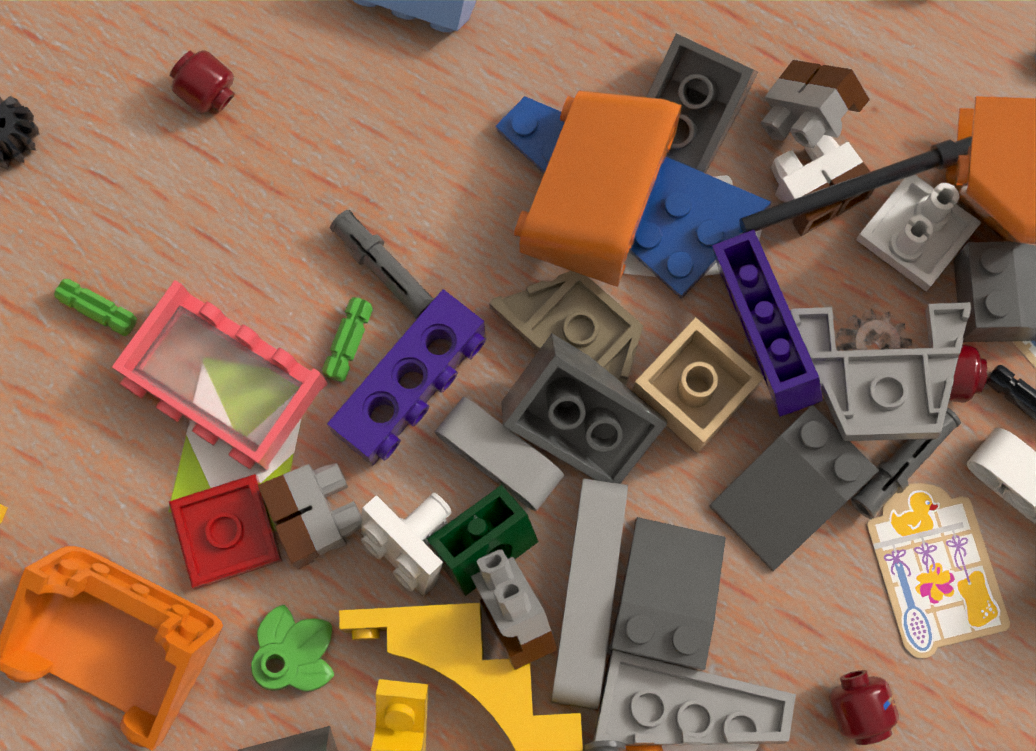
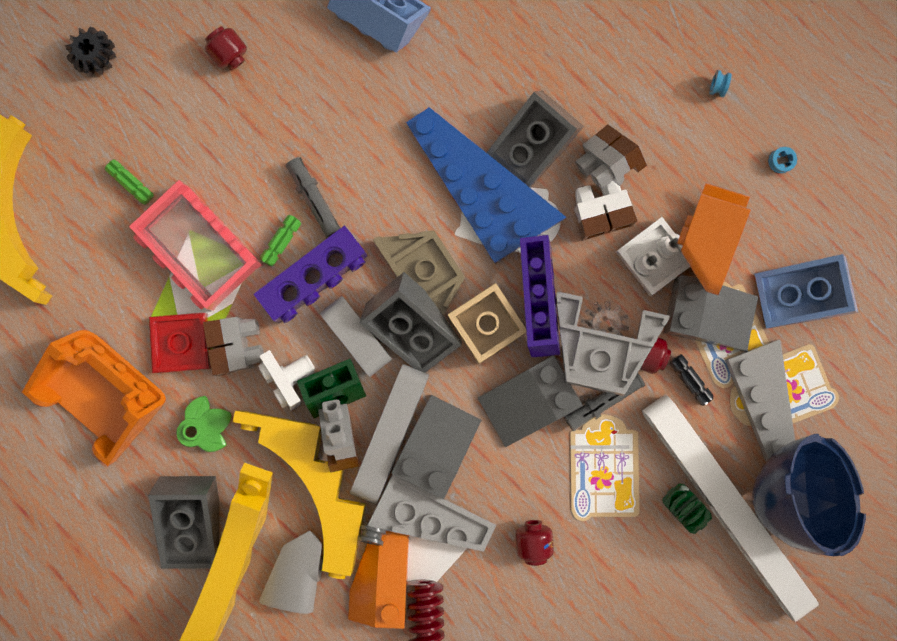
camera: 15 degrees right, 10 degrees up
(598, 182) = (458, 178): orange windscreen -> none
(940, 156) = (683, 213): black bar -> none

